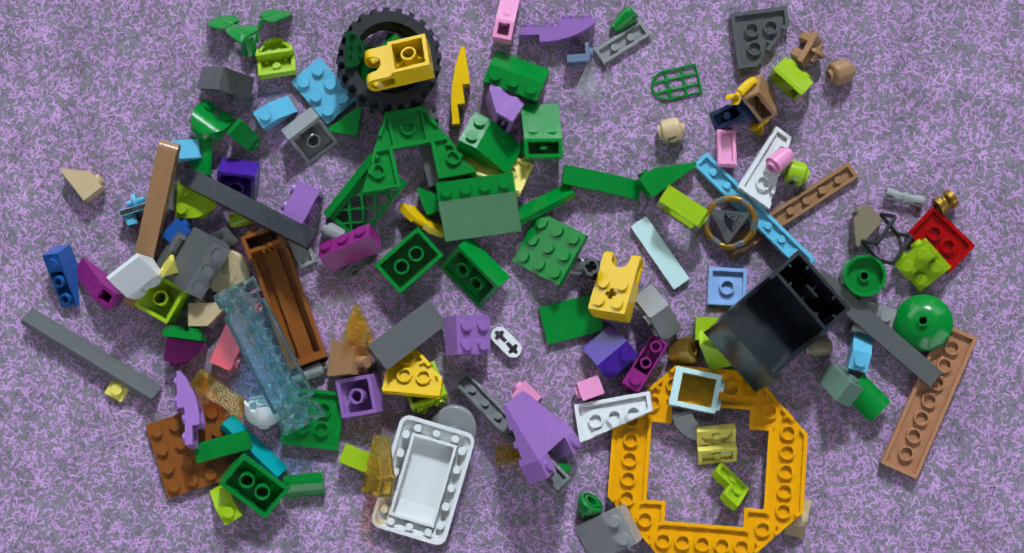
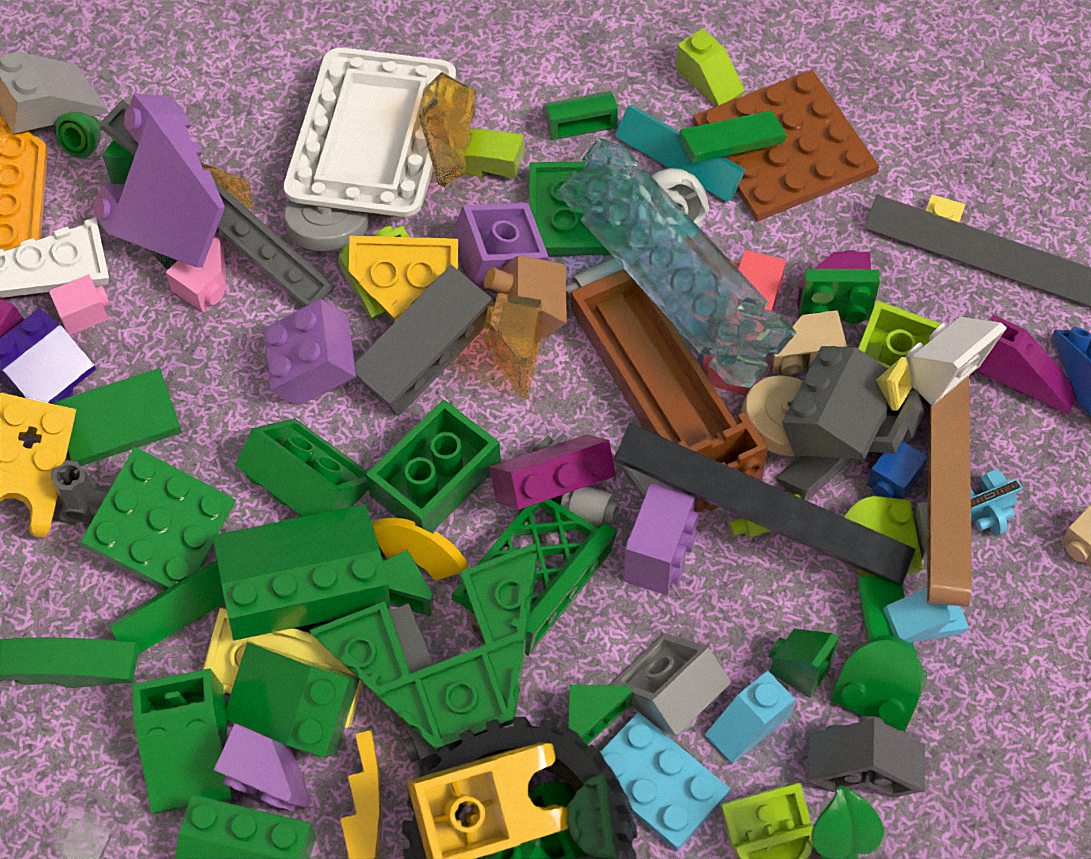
camera: 170 degrees right, 25 degrees down
(189, 403) = (805, 195): medium lavender slope -> none
(218, 392) = (761, 223): clear yellow slope -> none
(240, 175) = (798, 582): dark purple slope -> none
(253, 485) = (669, 80): green slope -> none
(509, 338) = (235, 370): white beam -> none

